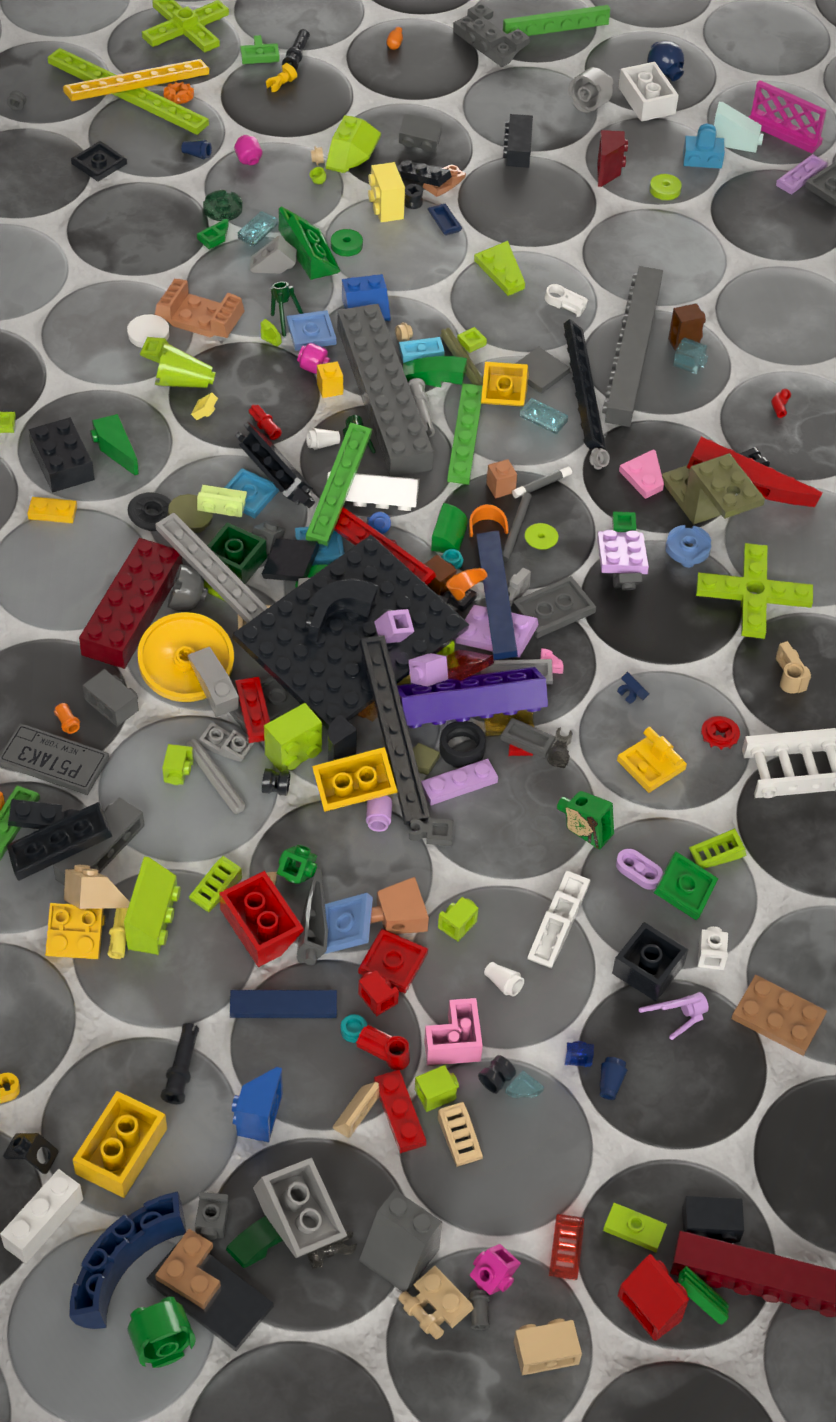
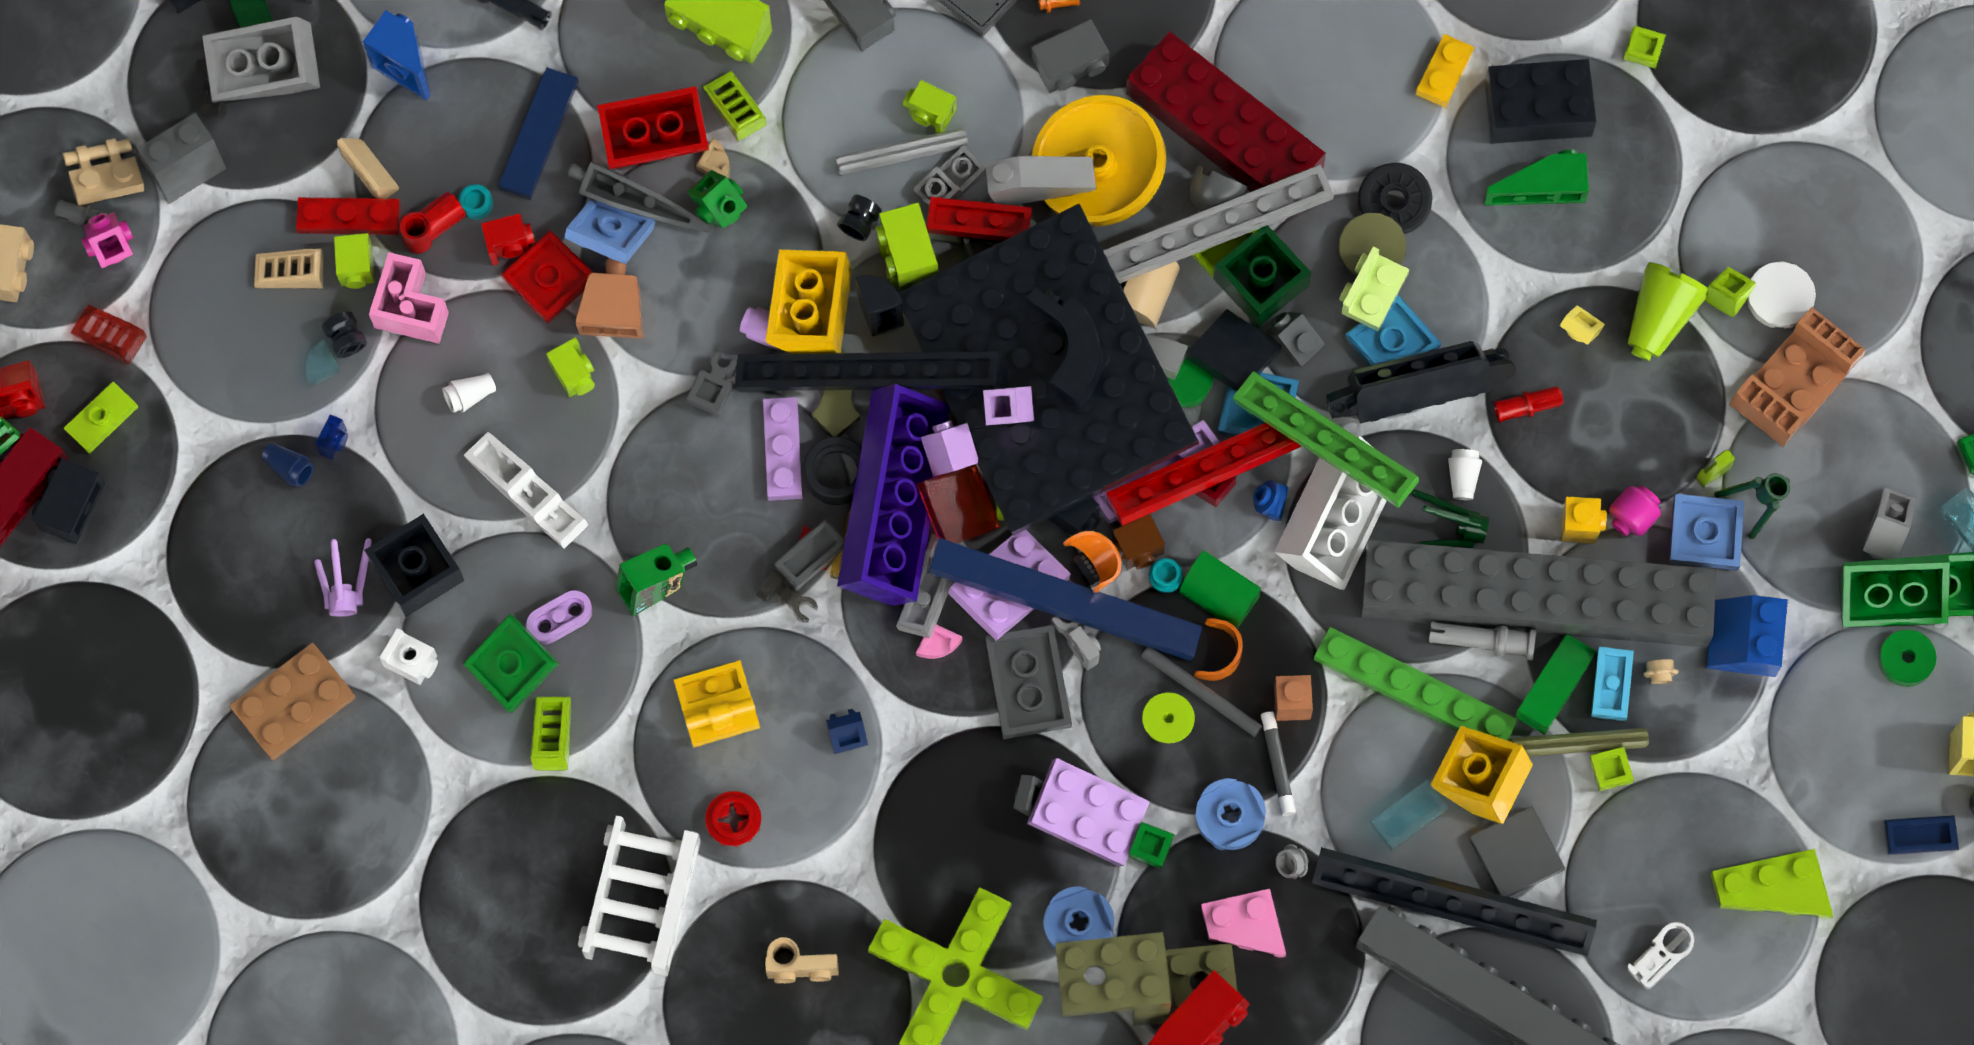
camera: 115 degrees right, 20 degrees up
(585, 503) = (1238, 796): none -> medium blue plate

